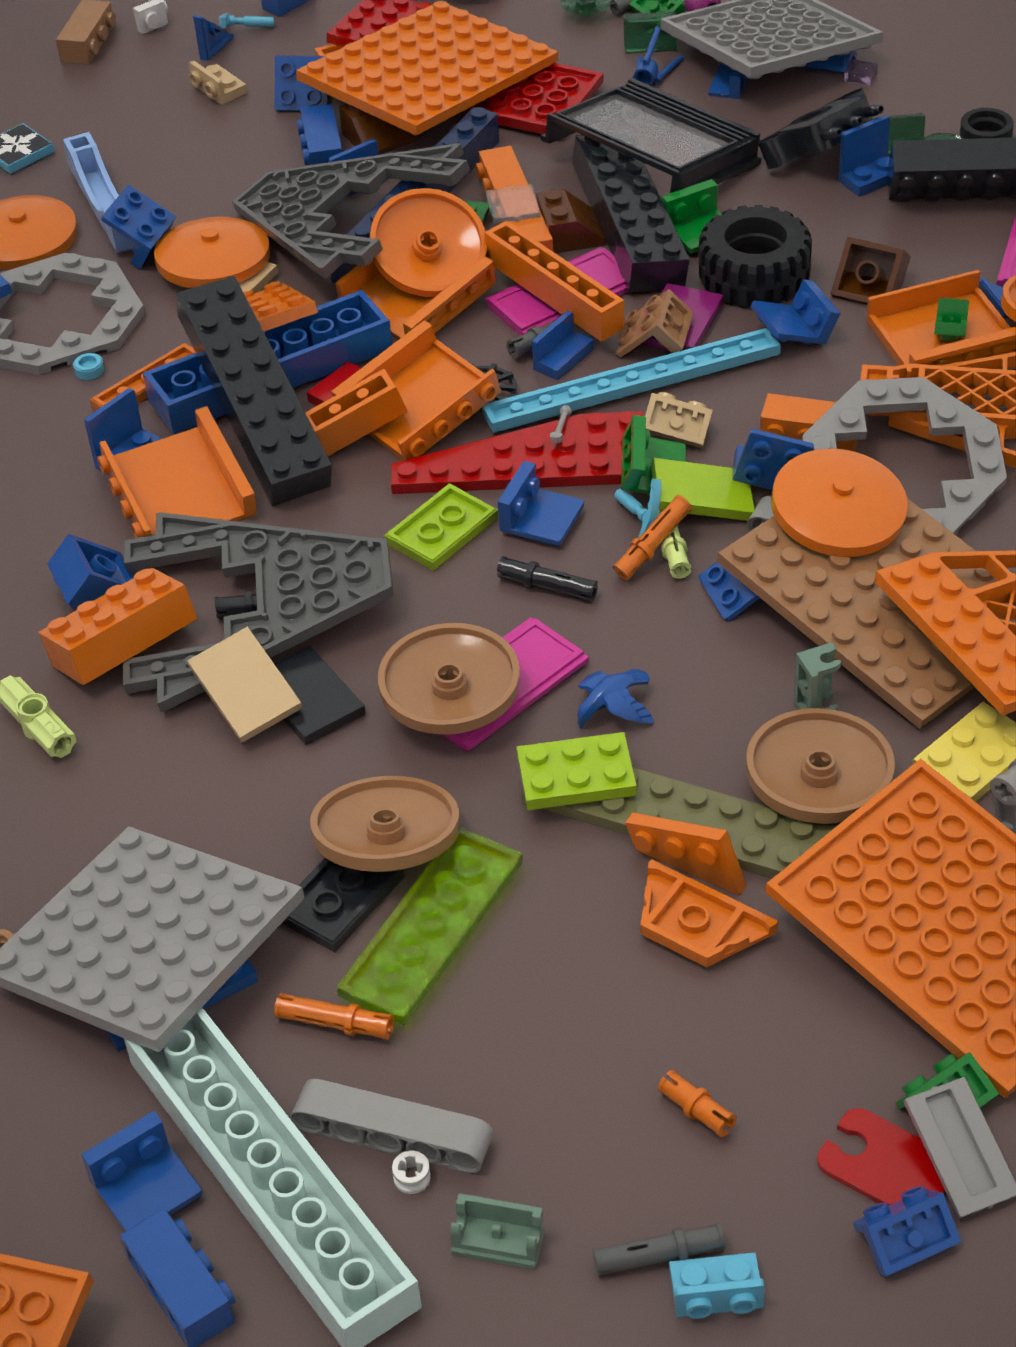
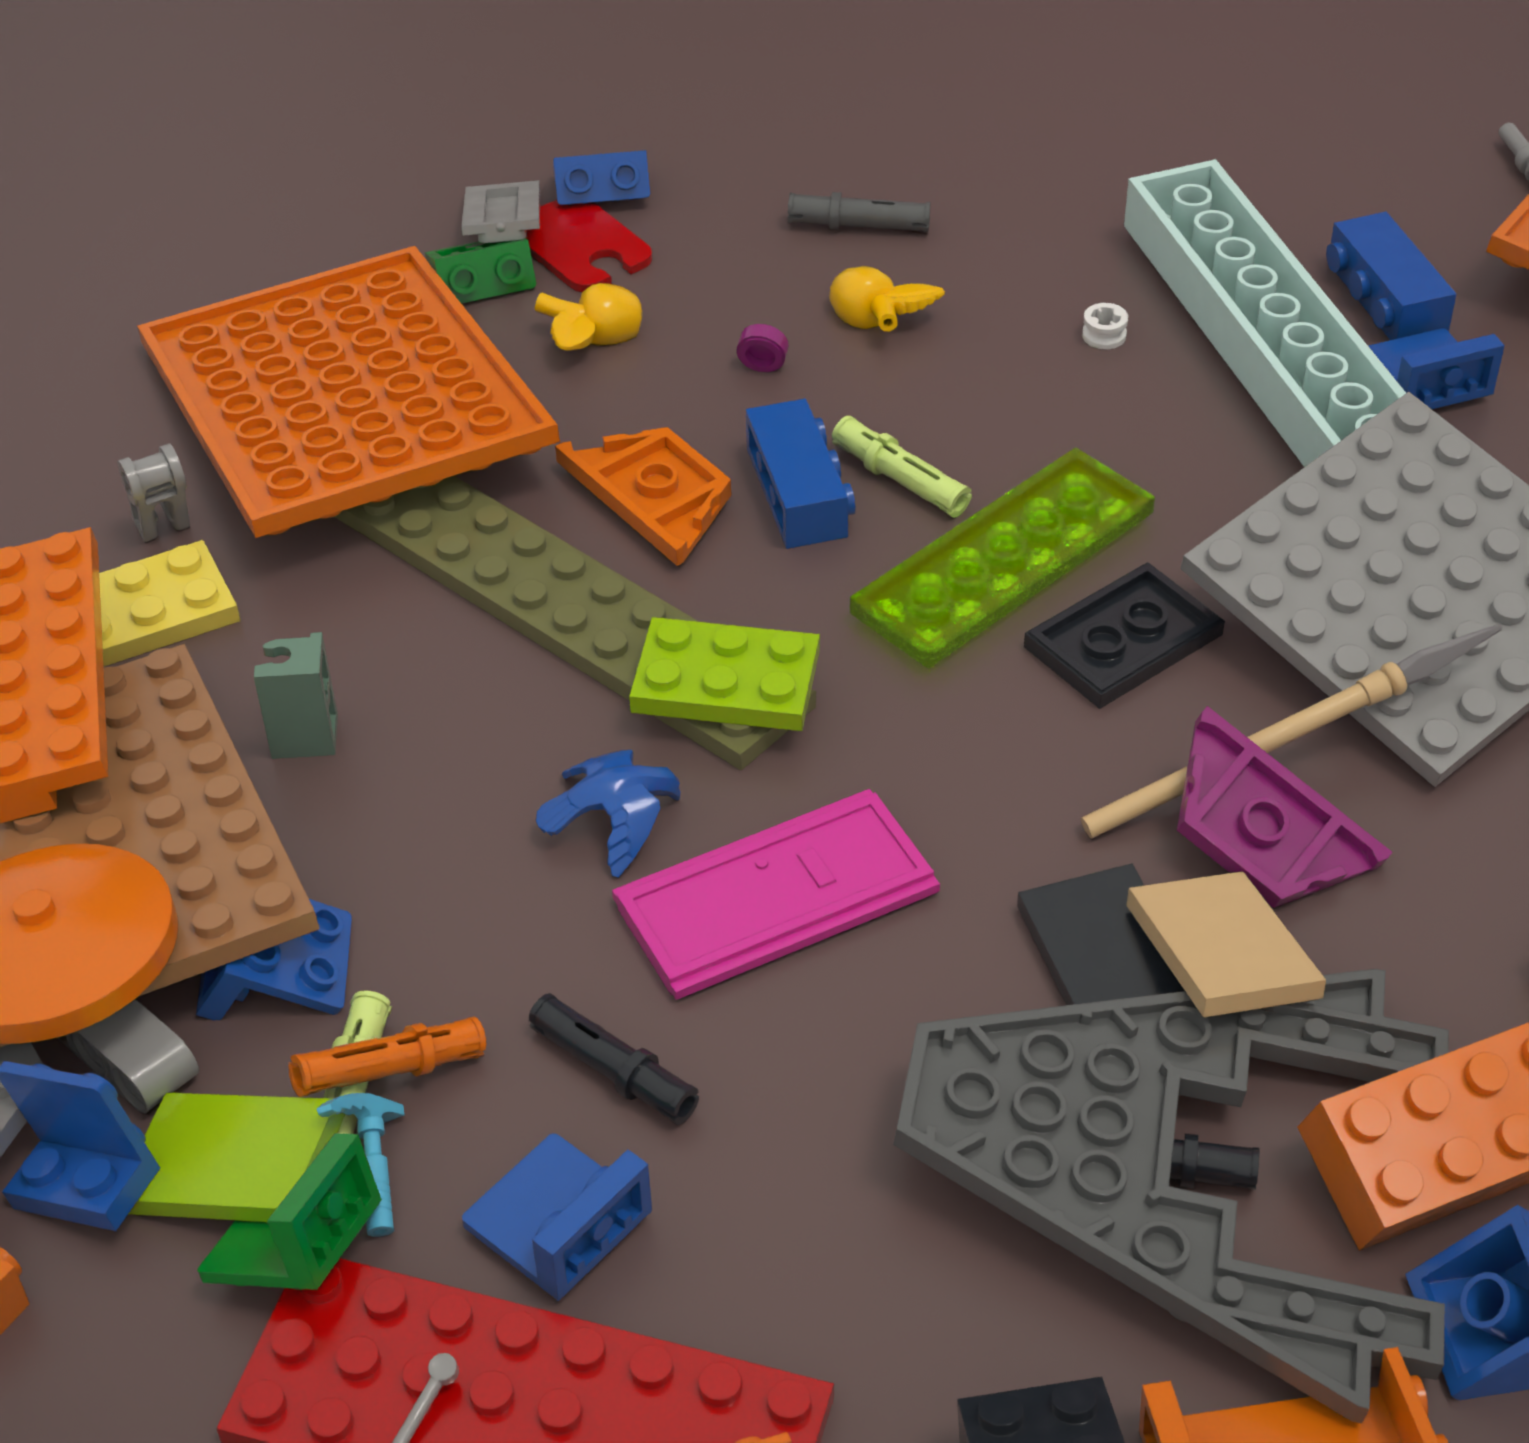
camera: 165 degrees left, 0 degrees up
(167, 834) = (1369, 690): none -> tan piece
(229, 765) = (1265, 819): none -> magenta wing
(350, 1018) = (1168, 481): orange pin -> none
(384, 823) = (1037, 666): medium nougat dish -> none
(392, 1125) = (1120, 358): light grey beam -> none
(441, 526) = (761, 1259): lime tile -> none
(449, 678) = (869, 839): medium nougat dish -> none
(497, 1231) = (1022, 255): sand green hinge -> none
(543, 985) = (884, 455): none -> yellowish green pin
(598, 948) = (798, 473): none -> blue brick
(612, 1144) = (869, 298): none -> yellow piece
(675, 1057) = (762, 348): none -> magenta tile
(677, 419) = (165, 1360): tan bracket -> none
(689, 847) = (622, 536): orange wing -> none
(697, 1103) = (750, 304): orange pin -> none
(716, 1285) = (812, 169): medium azure bracket -> none
(814, 1065) = (602, 317): none -> yellow piece
(818, 764) = (385, 594): medium nougat dish -> none

